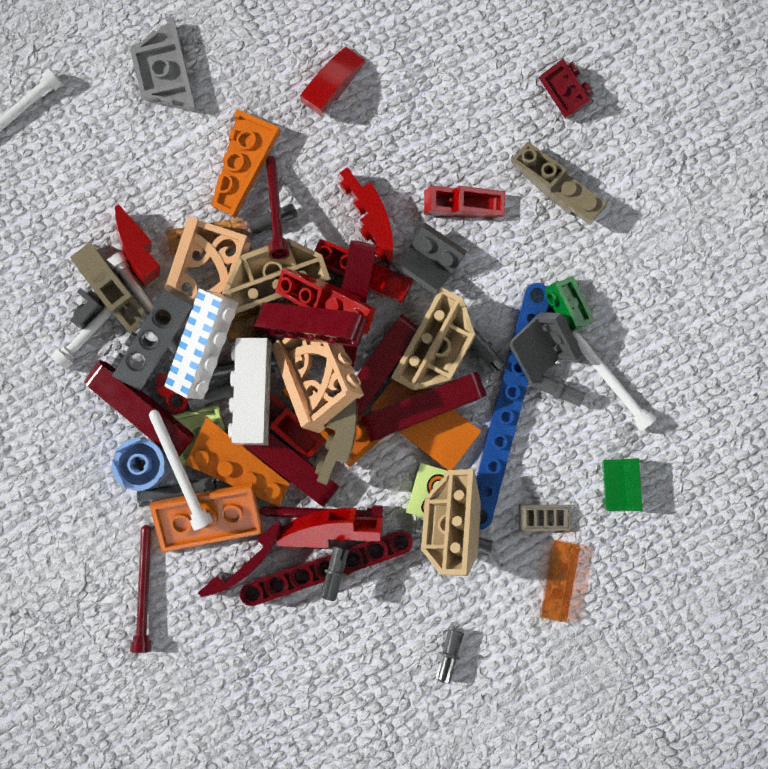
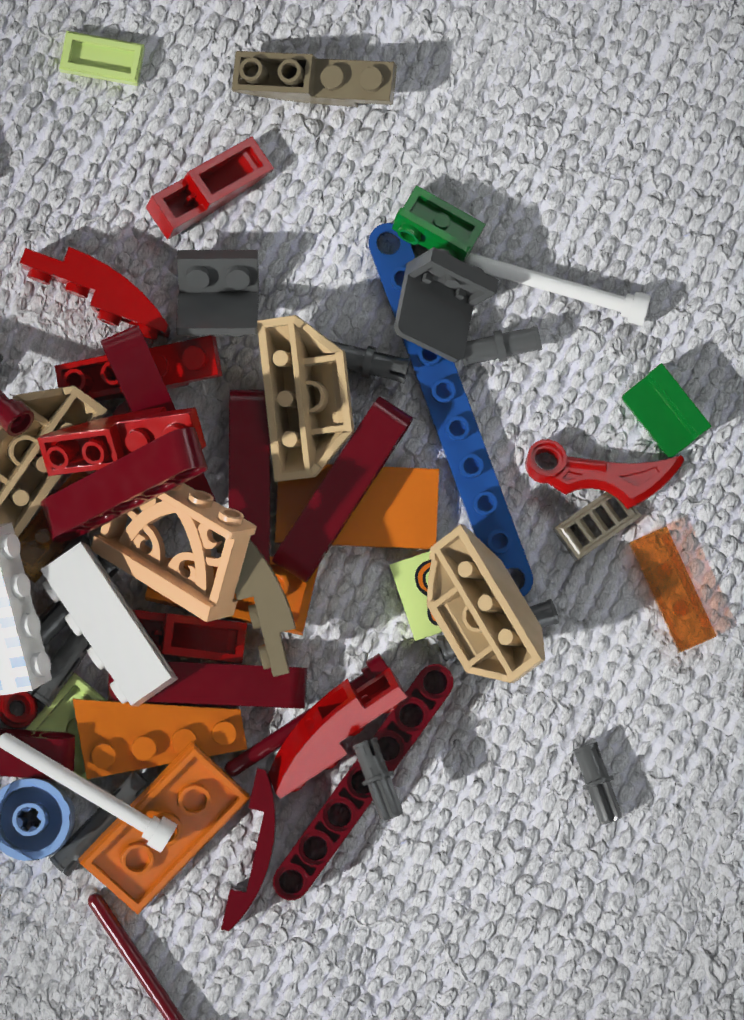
camera: 35 degrees left, 0 degrees up
(455, 99) = (102, 58): none -> yellowish green tile
(576, 508) = (626, 481): none -> red piece

